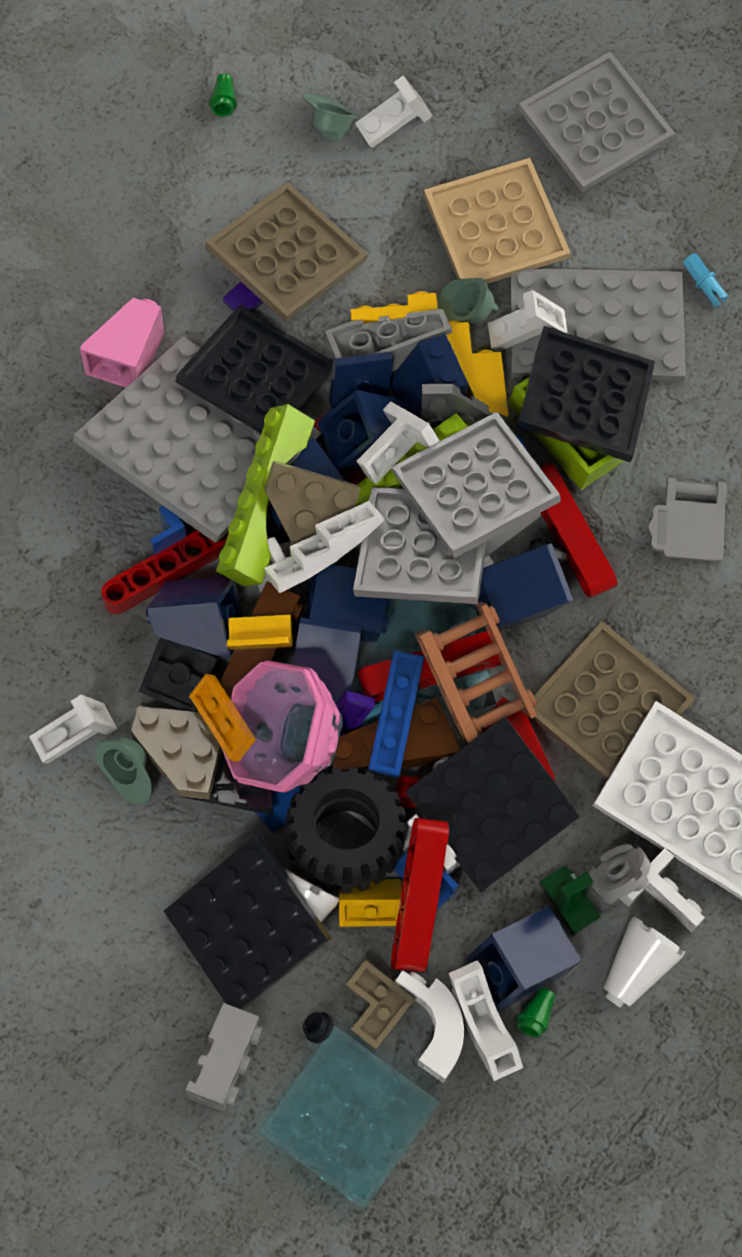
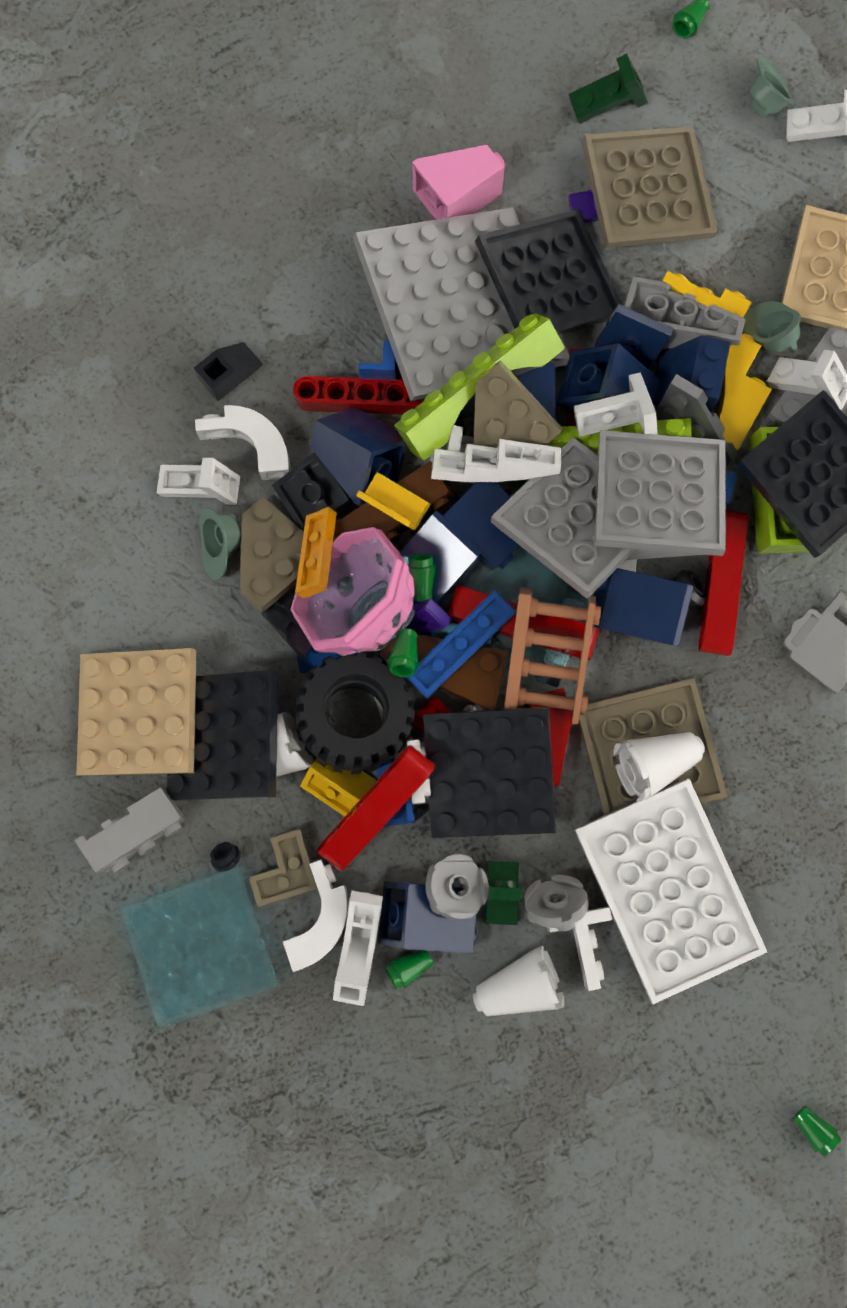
camera: 40 degrees right, 10 degrees up
(31, 620) = (227, 369): none -> black slope
(93, 655) = (255, 429): none -> white arch
(156, 956) = (136, 713): none -> tan plate
(198, 196) = (609, 92): none -> dark green bracket
(328, 675) = (423, 572): none -> green cone
(357, 751) = (404, 656): none -> green cone
(521, 922) = (440, 892): none -> light grey plate
(619, 706) = (656, 761): none -> white cone

